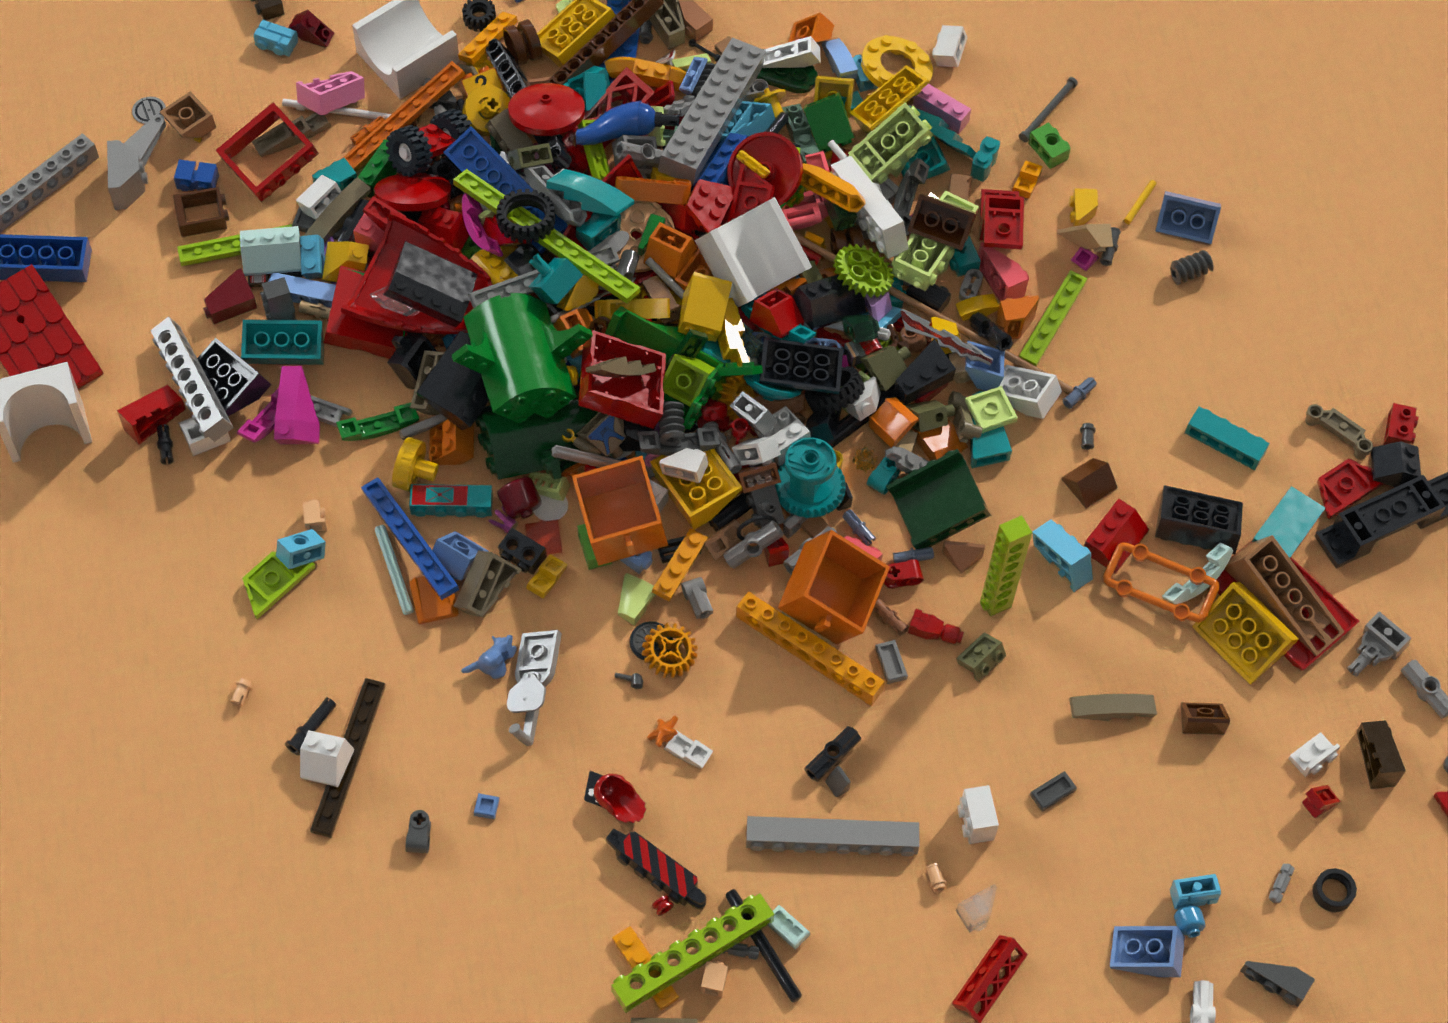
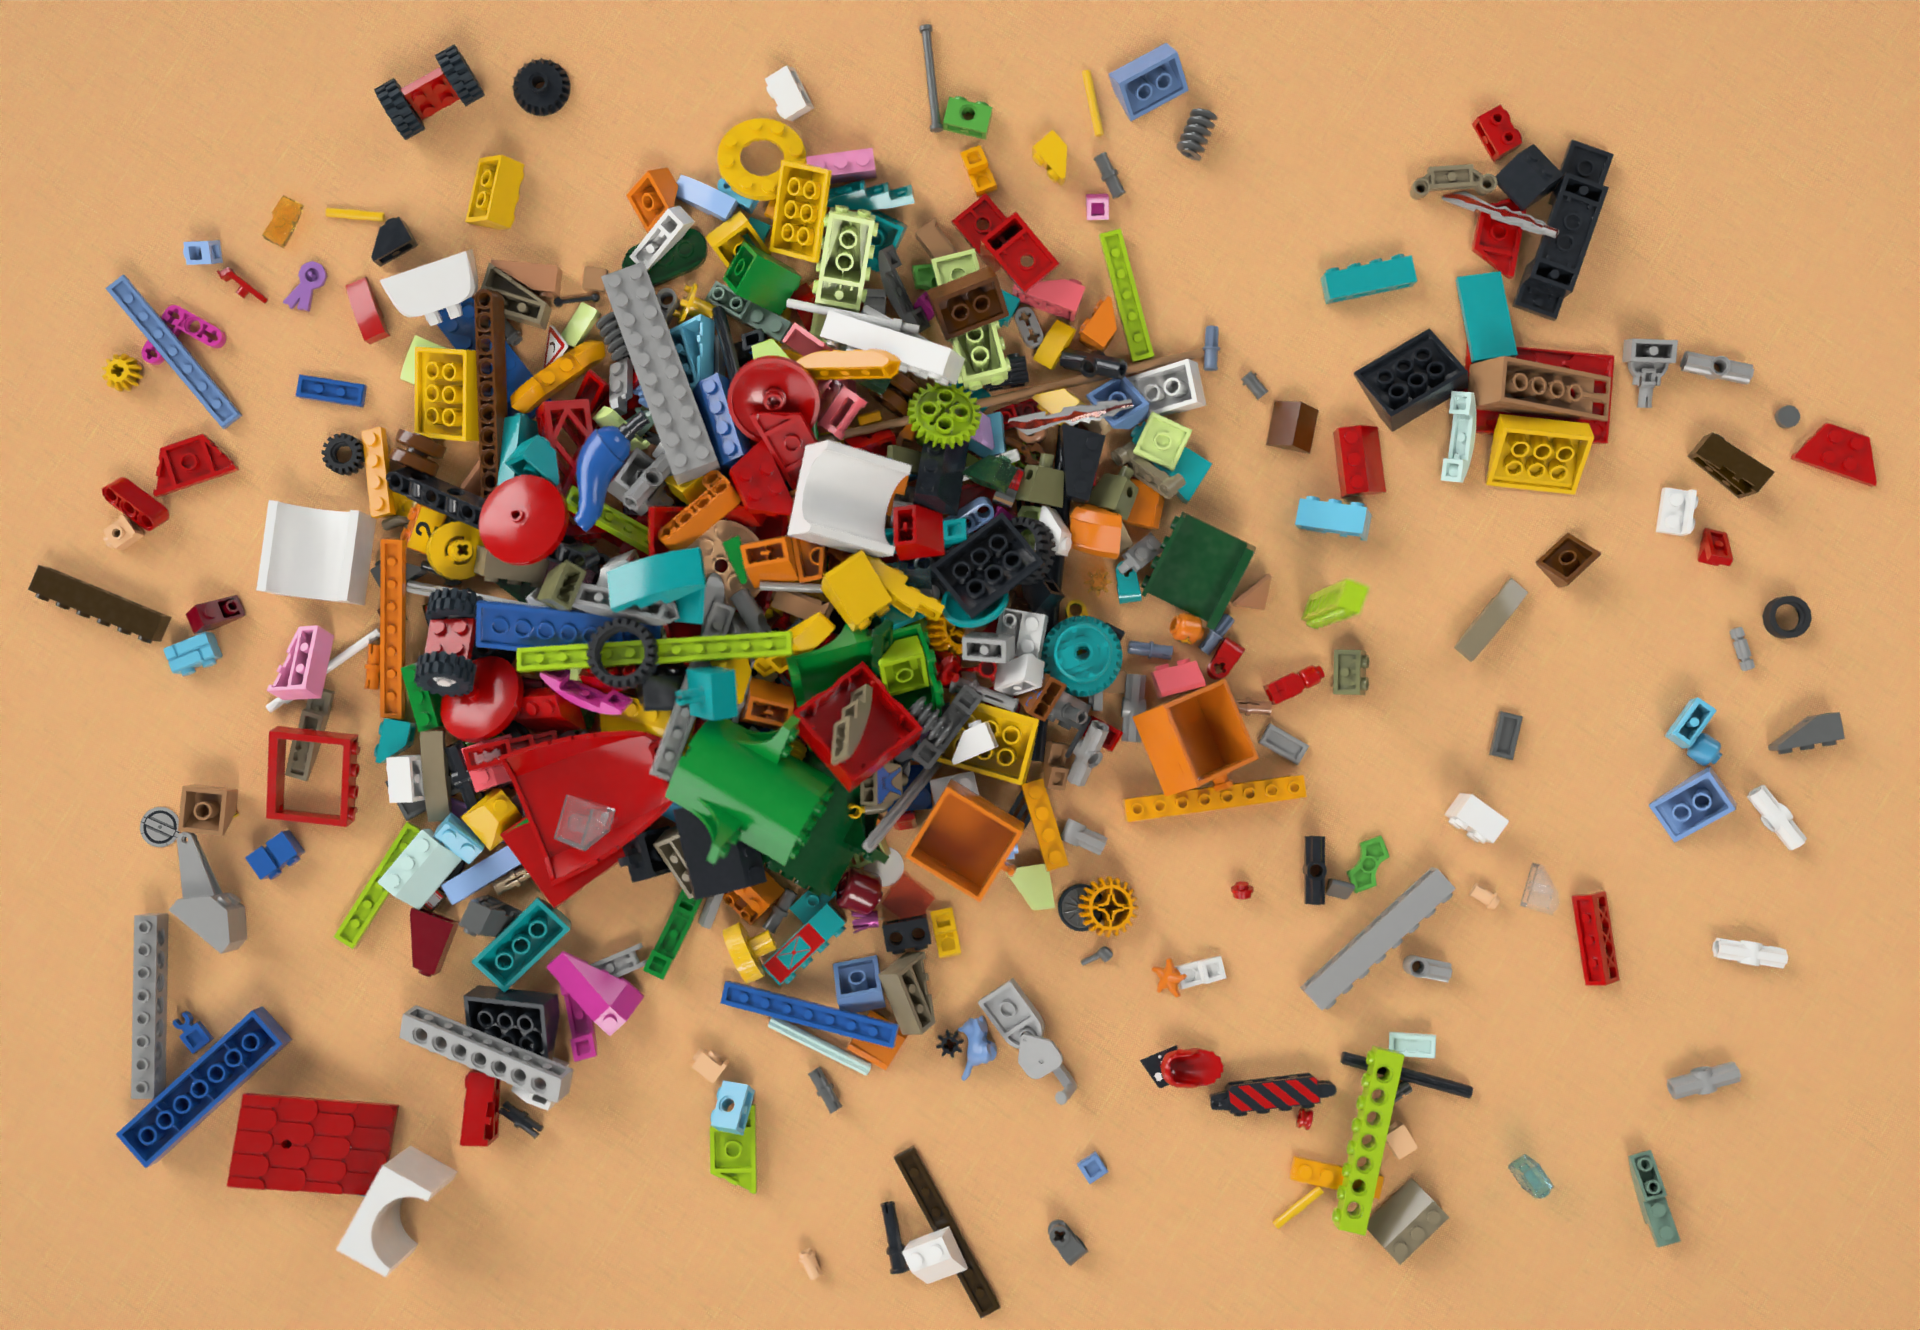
camera: 40 degrees left, 25 degrees up
(38, 225) = (194, 1035): none -> blue plate
(200, 198) = (304, 904): reddish brown window -> none
(368, 597) = (825, 1090): none -> dark grey pin
(431, 284) = (605, 791): black slope -> none
(457, 469) = (780, 910): none -> dark grey pin
(477, 646) = (945, 1048): none -> black gear
(484, 479) = (809, 905): none -> teal plate
(598, 321) = (781, 684): reddish brown bush -> none
(598, 962) = (1299, 1206): none -> yellow piece
(693, 75) = (600, 343): light blue slope -> none
(747, 368) = (945, 623): green plate -> none
(753, 164) = (760, 407): yellow axle -> none
(770, 722) = (1242, 890): none -> red plate
(849, 888) = (1428, 968): none -> light grey piece
(866, 788) = (1371, 855): none -> bright green tile
(896, 534) = (1186, 628): none -> orange head
(985, 158) = (924, 182): teal brick -> none
(1089, 236) = (1087, 185): tan slope -> none
(1180, 611) = (1473, 485): orange bar -> none
(1358, 471) = (1501, 214): none -> light grey sword

